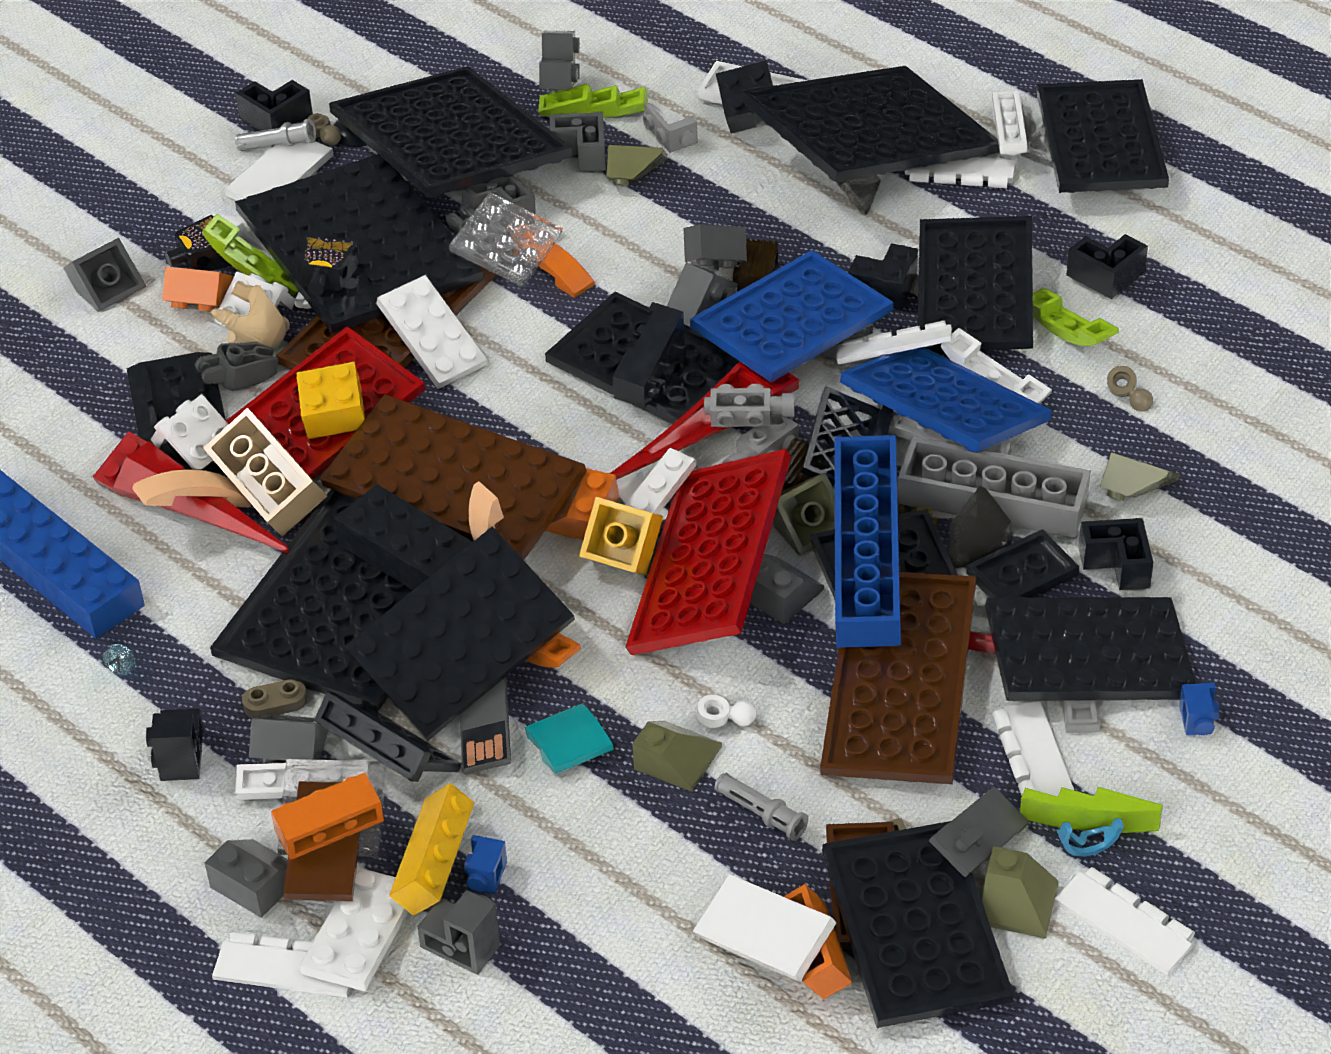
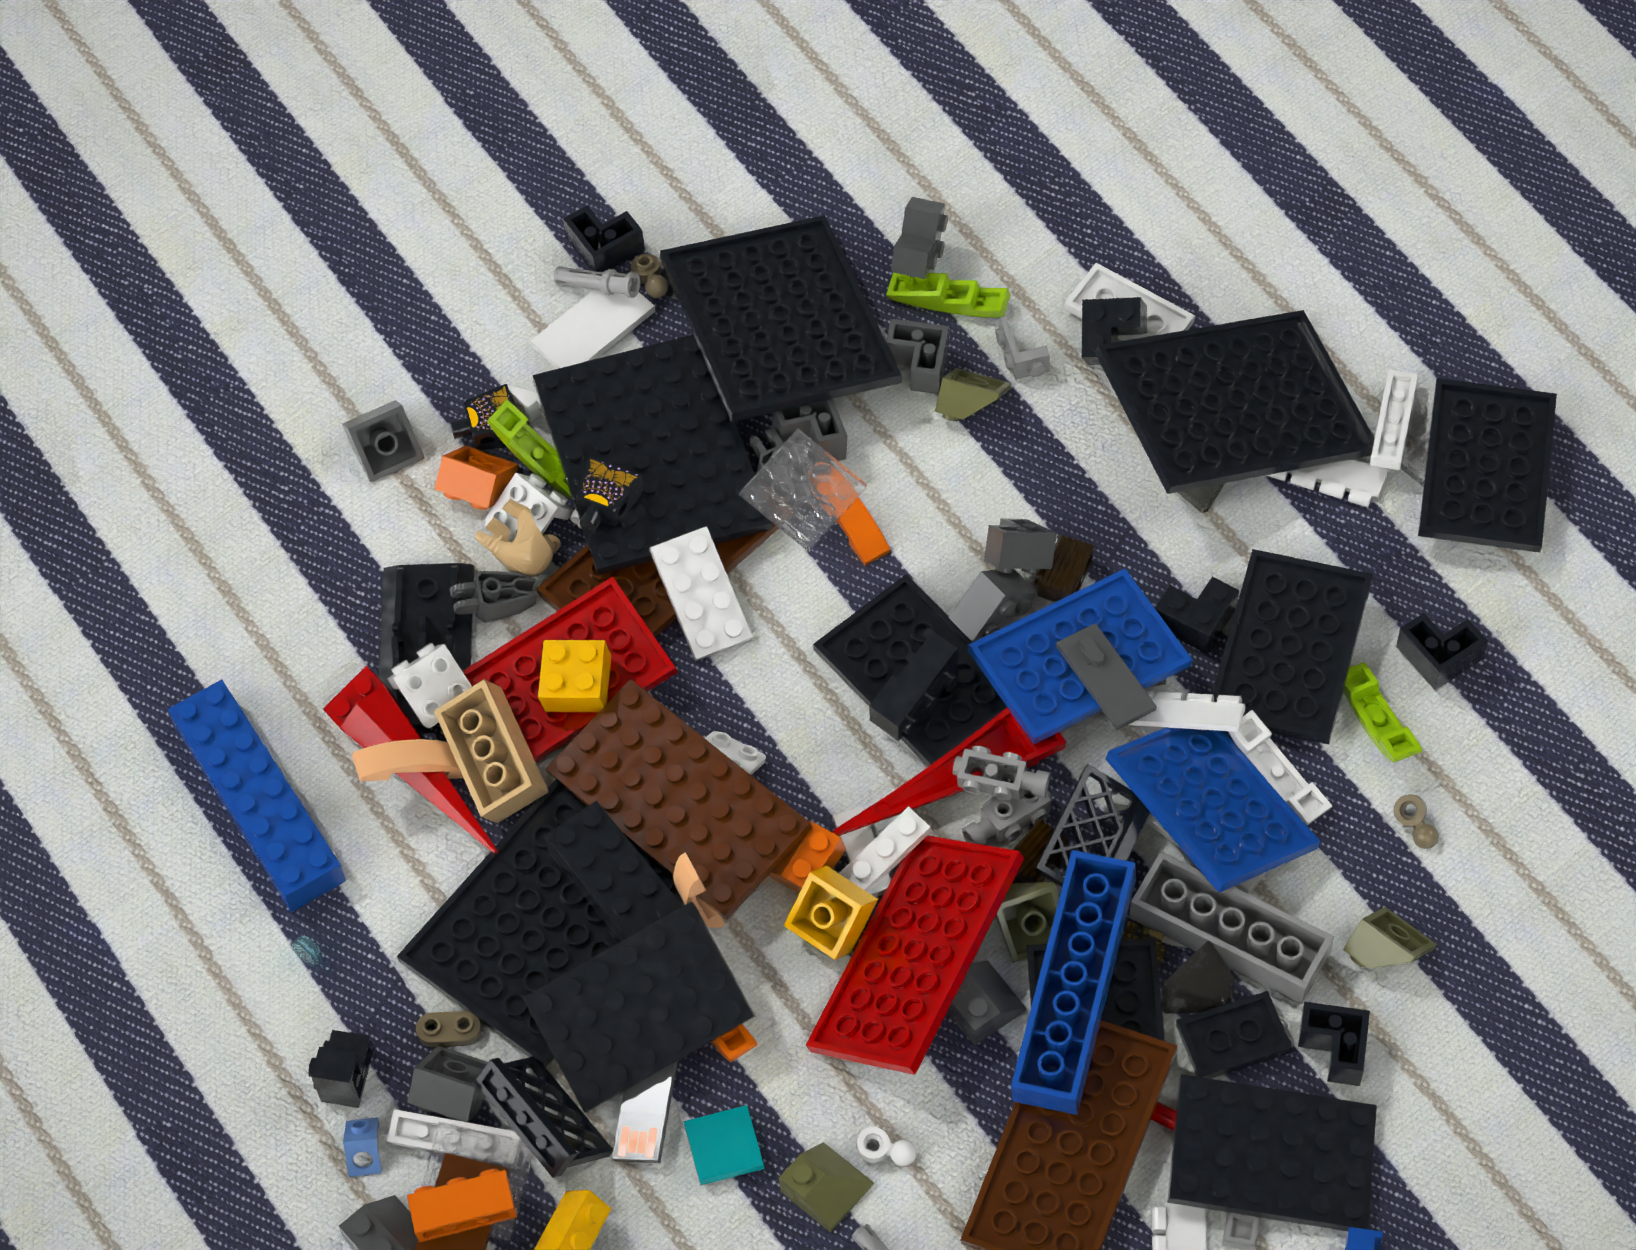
camera: 15 degrees right, 15 degrees up
(208, 794) = (362, 1137): none -> medium blue bracket
(821, 322) = (1106, 676): none -> dark grey piece

